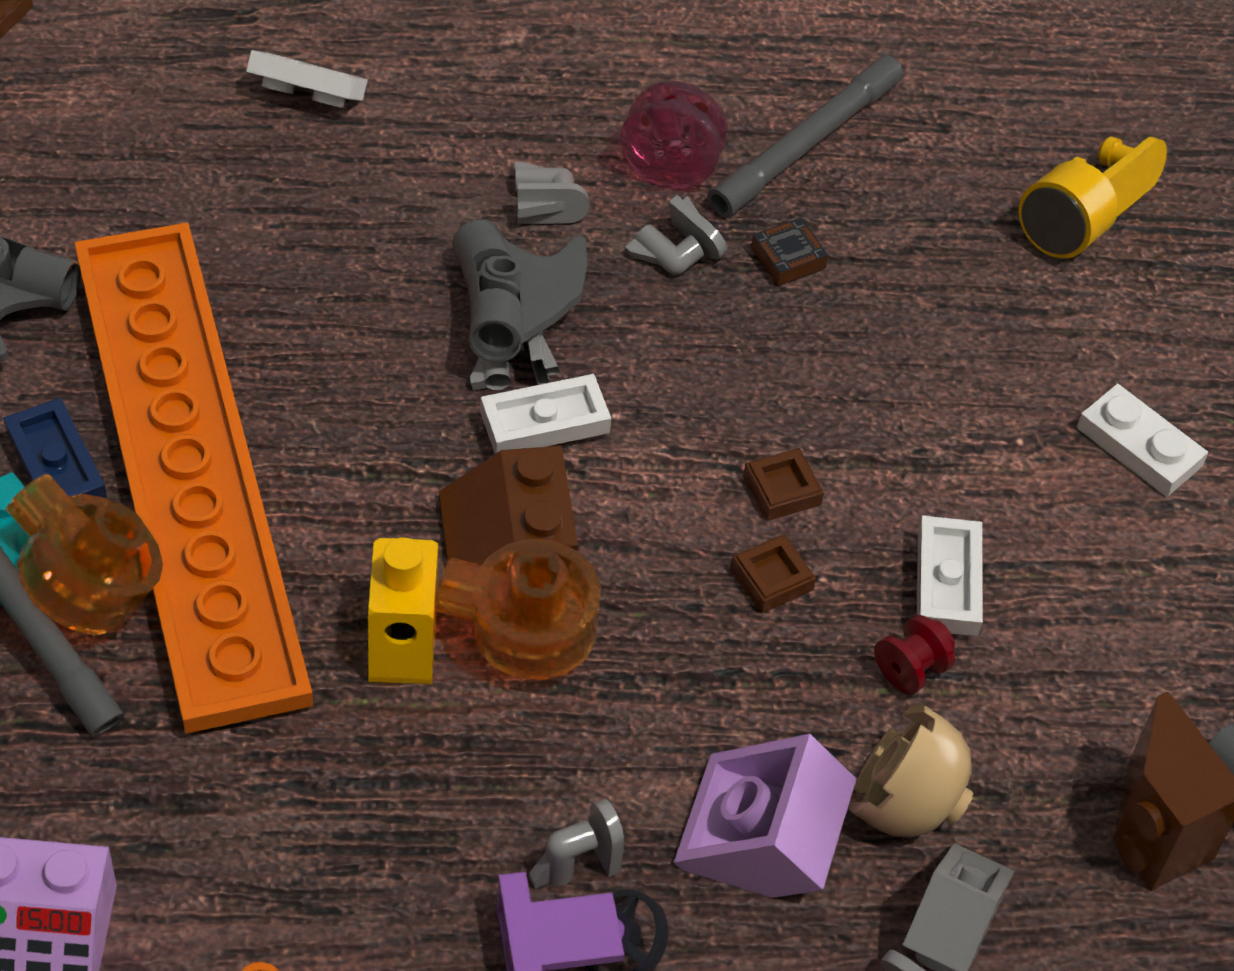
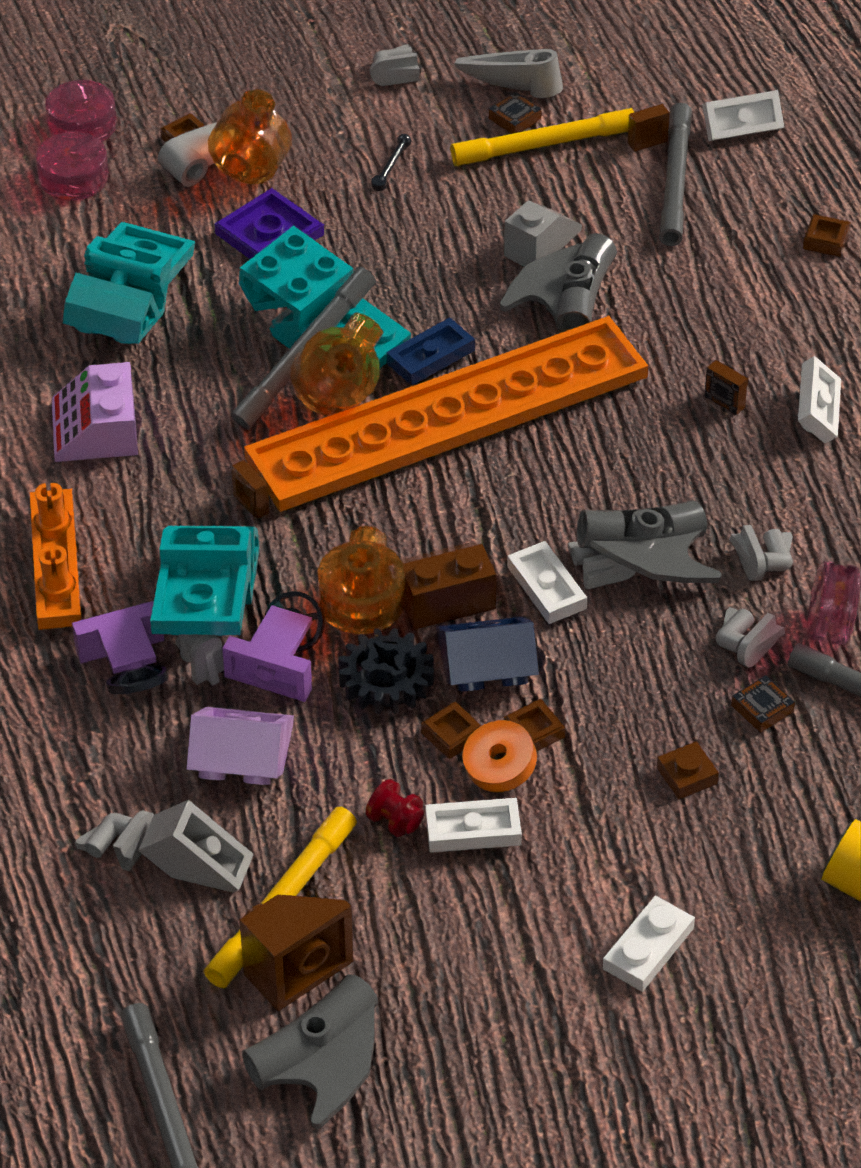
camera: 85 degrees right, 5 degrees down
(253, 157) = (726, 387): none -> tile
(271, 728) = (250, 489): none -> reddish brown tile
(402, 592) = (344, 511): yellow torso -> none
(473, 789) = (204, 579): none -> teal piece
(603, 730) = (269, 656): none -> medium lavender piece
(655, 498) = (488, 652): none -> dark blue slope
(670, 620) = (386, 671): none -> black gear
(854, 504) = (503, 773): none -> orange piece
(881, 345) = (687, 770): none -> reddish brown plate
(915, 777) = (283, 809): tan cylinder -> none
(1125, 882) = (323, 843): none -> yellow piece

